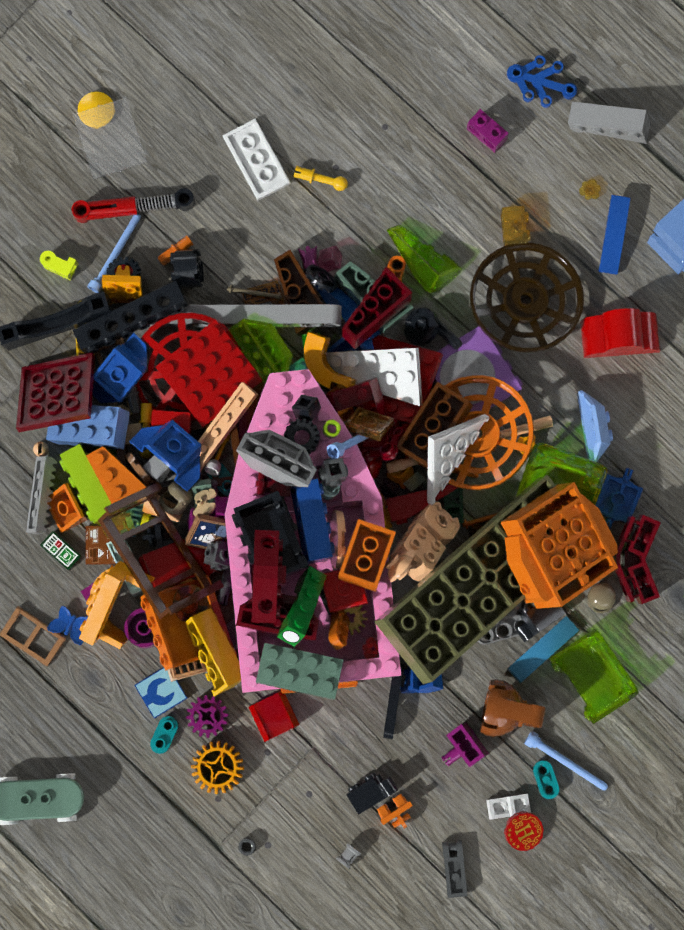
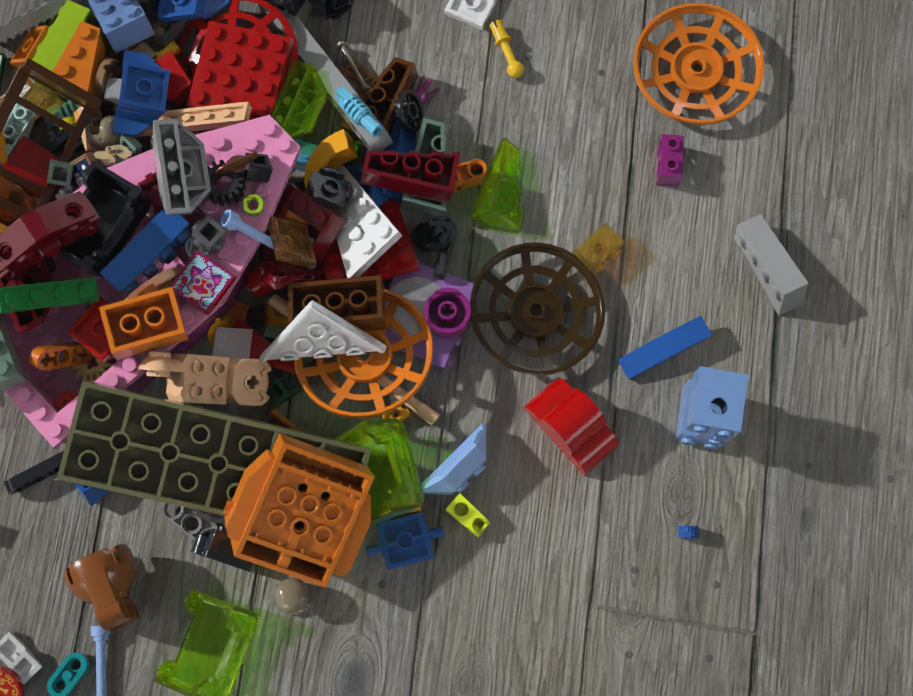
camera: 50 degrees right, 5 degrees down
(191, 548) = (60, 173): none -> sand green slope
(299, 417) = (236, 163): none -> copper piece
(305, 313) = (358, 111): none -> medium azure hinge
(330, 258) = (438, 109): clear pink slope -> none
(345, 372) = (329, 188): none -> black tile
(361, 500) = (202, 282): none -> tile
(400, 515) = (232, 342): none -> white sticker
(433, 48) = (699, 54): none -> orange dish
(465, 745) = (46, 569): magenta brick -> none
(490, 347) = (460, 313): none -> magenta brick
(538, 80) = (757, 174): blue plant -> none
(543, 649) = (199, 576): dark azure slope -> none
(591, 184) = (693, 290): clear yellow plant -> none
(630, 446) = (467, 515): none -> neon yellow leg
(634, 559) = (349, 604): dark red brick -> none

